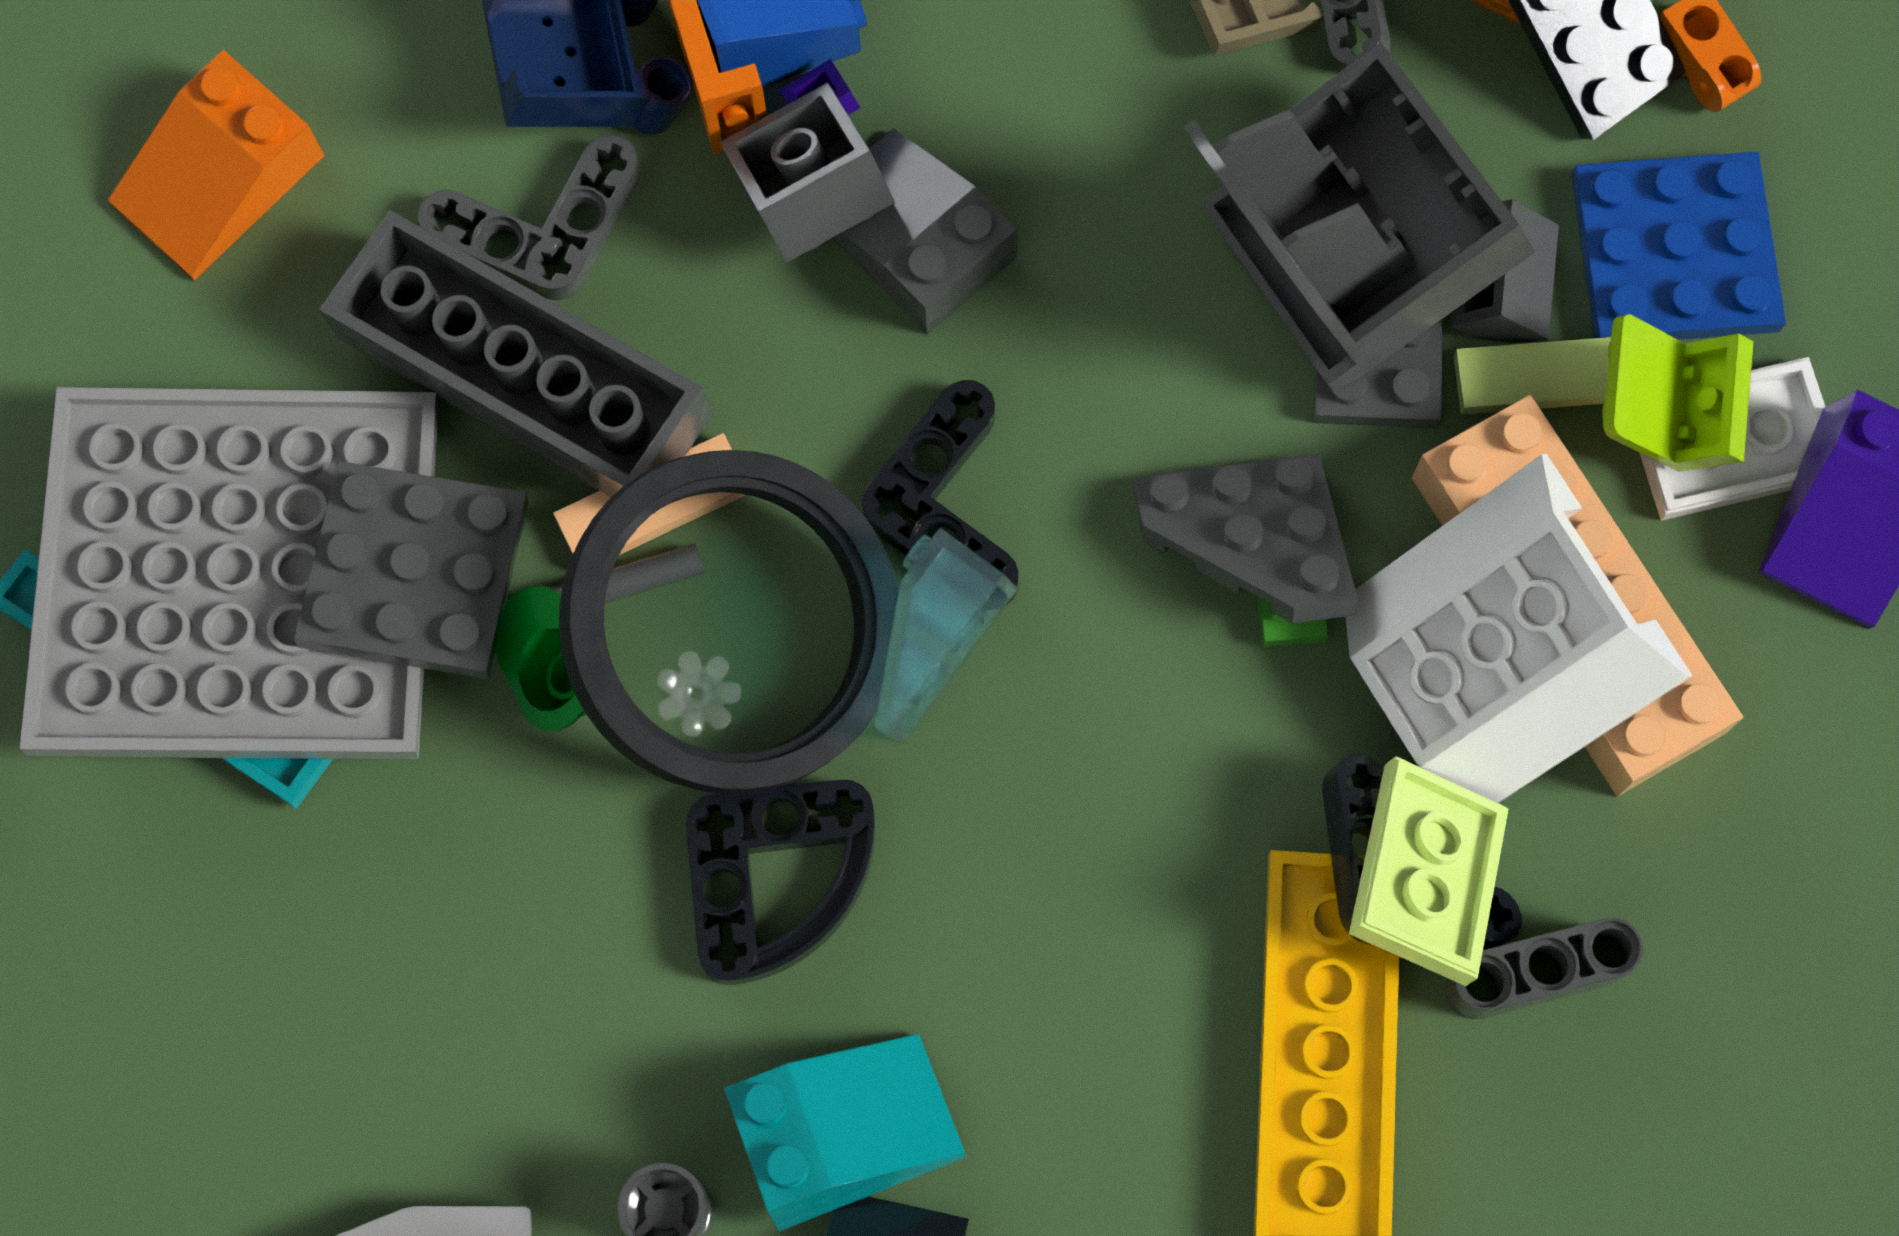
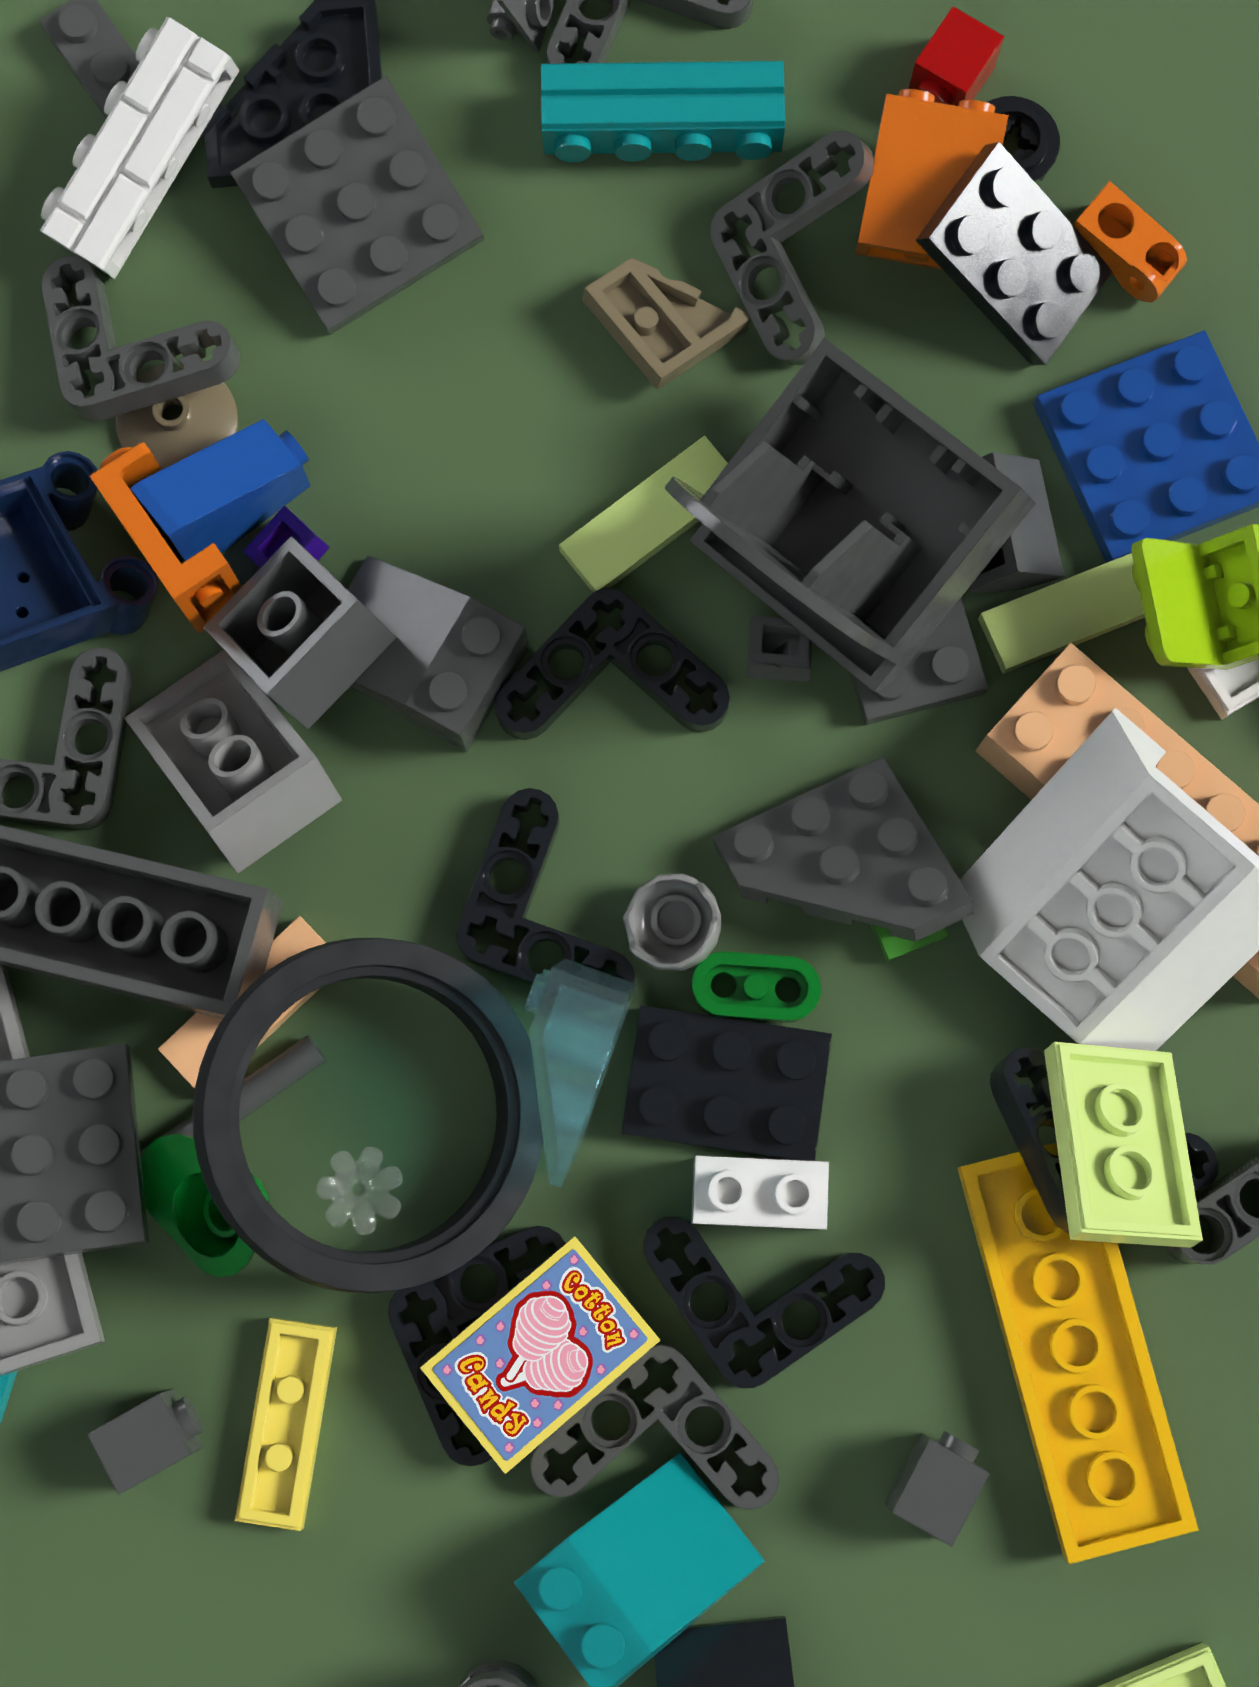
camera: 20 degrees left, 5 degrees up
(428, 859) = (147, 1439): none -> dark grey brick
(559, 890) = (286, 1424): none -> light yellow tile
(709, 274) = (234, 760): none -> light grey slope
(816, 894) = (540, 1354): none -> tile
(923, 992) = (671, 1410): none -> dark grey beam
(1014, 930) = (740, 1322): none -> black beam
(1069, 542) = (672, 922): none -> light grey hair
(1069, 813) = (760, 1192): none -> white brick
(1073, 710) = (727, 1084): none -> black plate
(1098, 279) = (620, 649): none -> black beam
(1131, 624) = (755, 986): none -> green plate
(1151, 175) = (641, 520): none -> yellowish green tile
(1153, 1138) = (938, 1486): none -> dark grey brick
(1250, 326) = (778, 651): none -> dark grey tile

